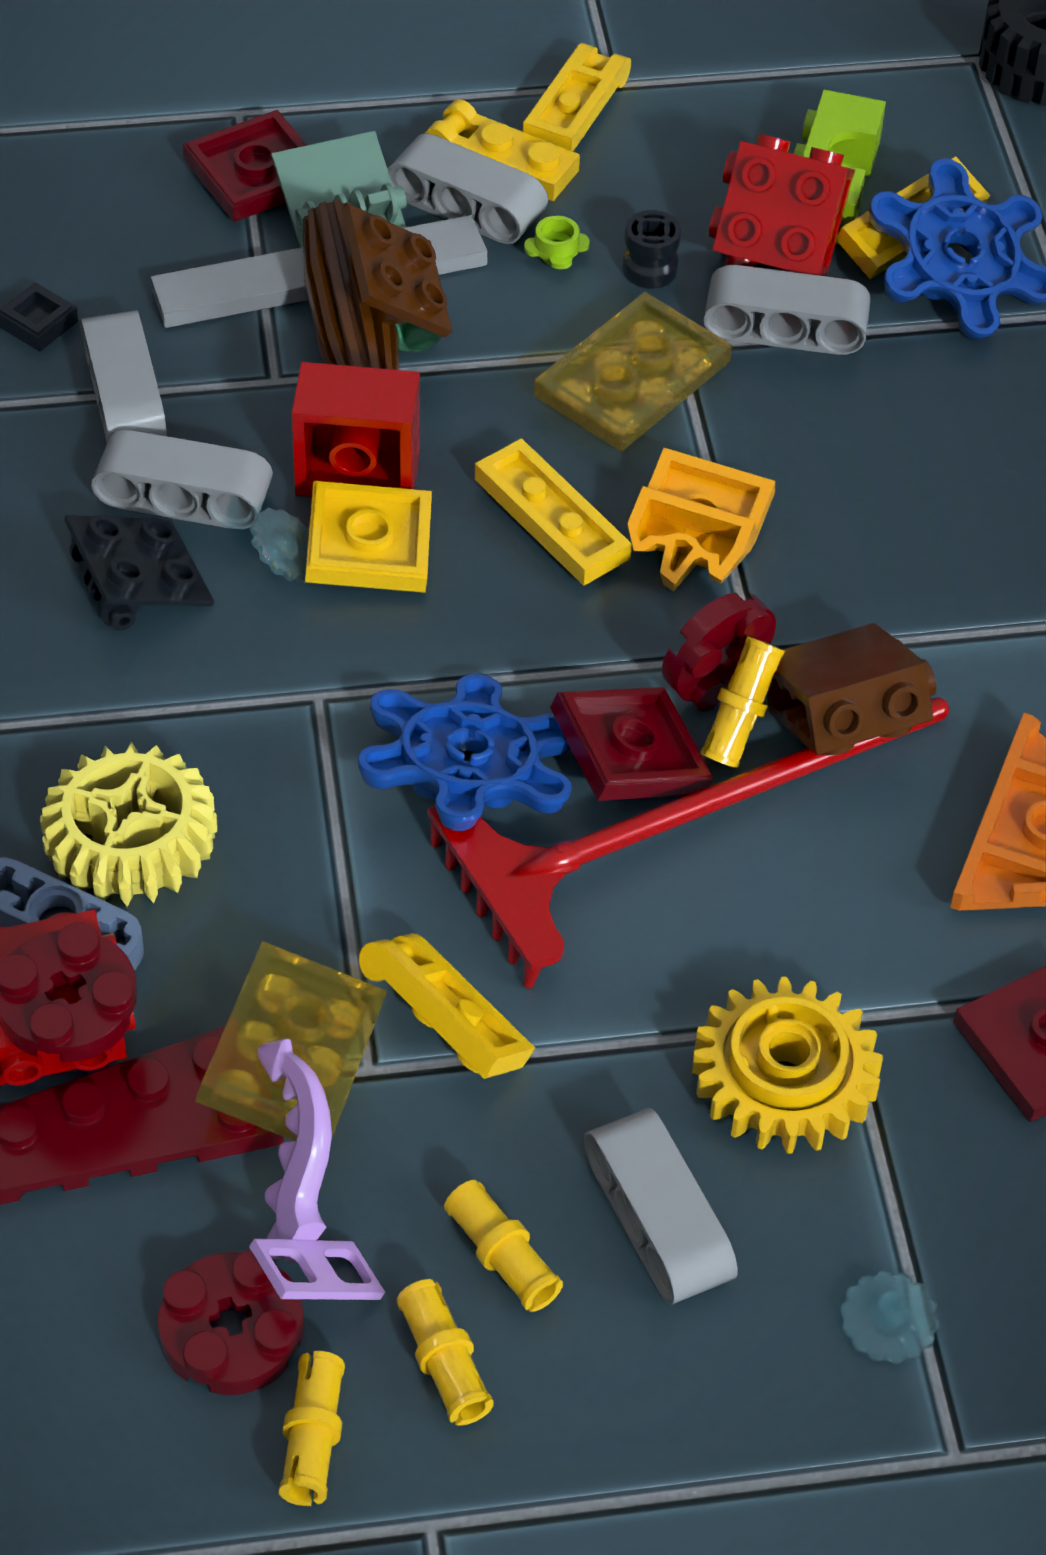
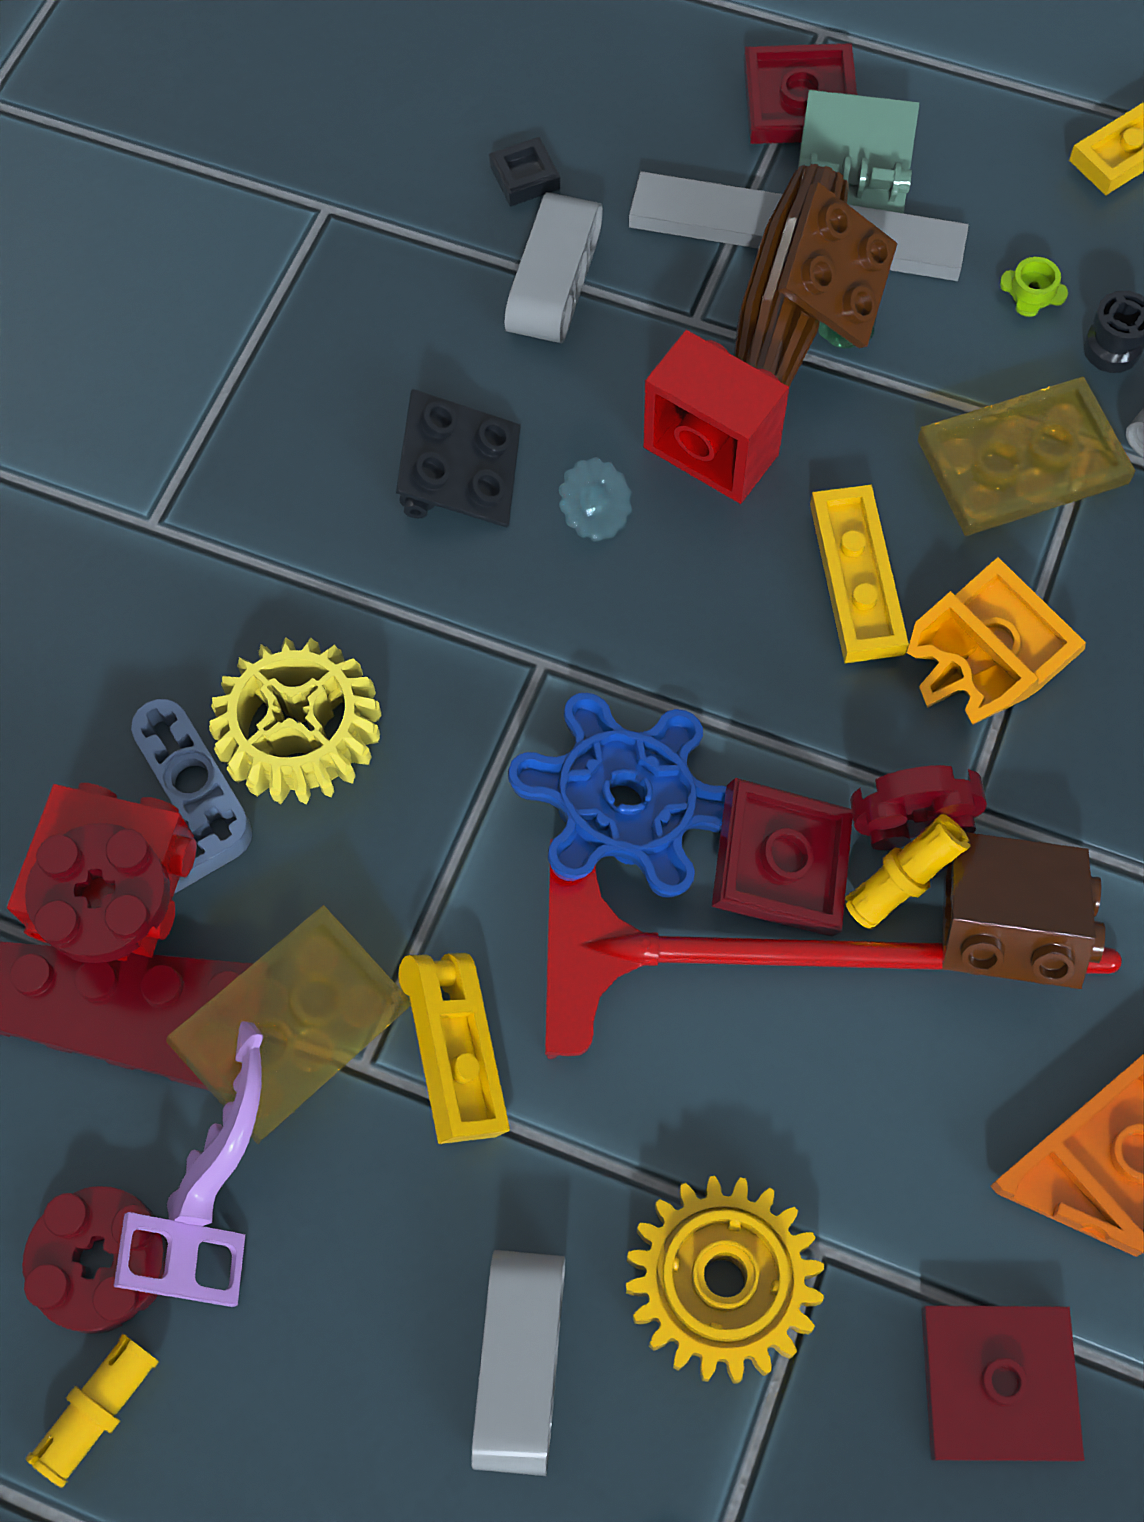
camera: 35 degrees right, 15 degrees up
(182, 479) = (546, 392): light grey beam -> none
(369, 536) = (675, 523): yellow plate -> none
(444, 1352) = (245, 1400): yellow pin -> none
(463, 183) = (981, 191): light grey beam -> none
(503, 1245) = (359, 1321): yellow pin -> none
(541, 159) = (1041, 167): yellow plate -> none

